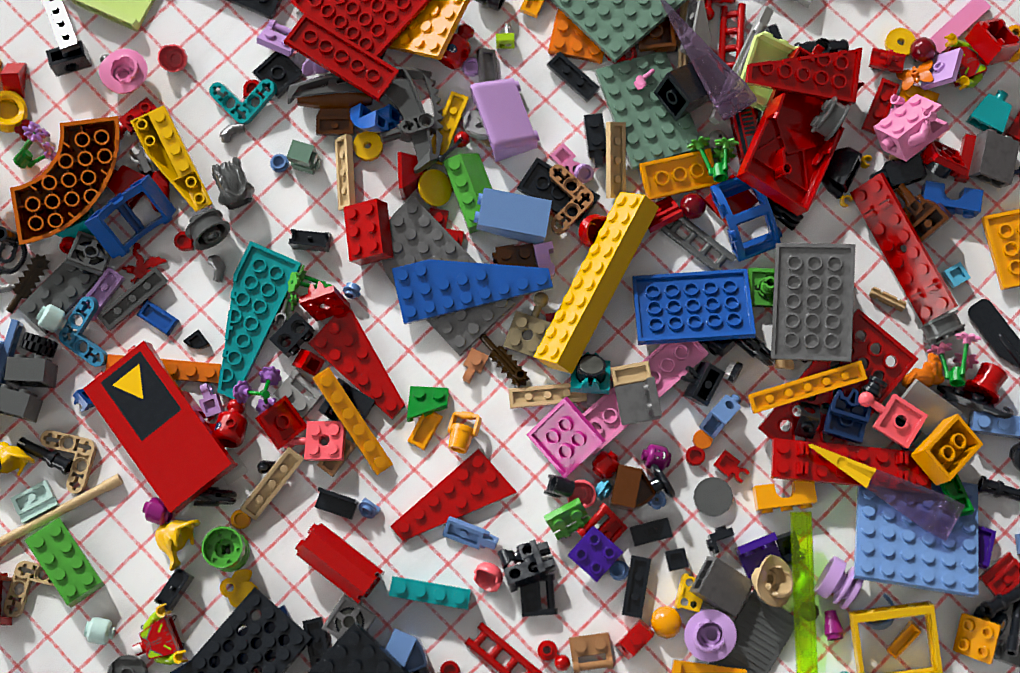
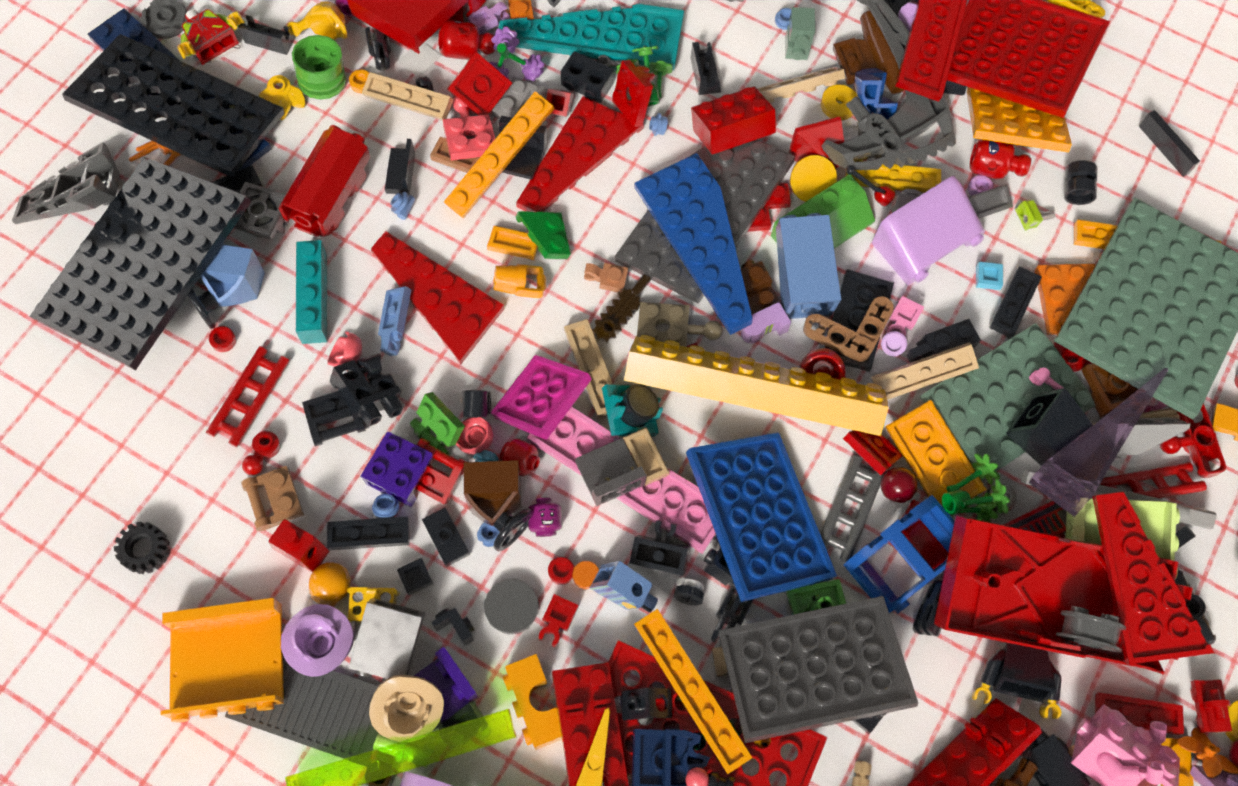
camera: 65 degrees right, 10 degrees down
(547, 87) = (989, 275): none -> medium azure plate

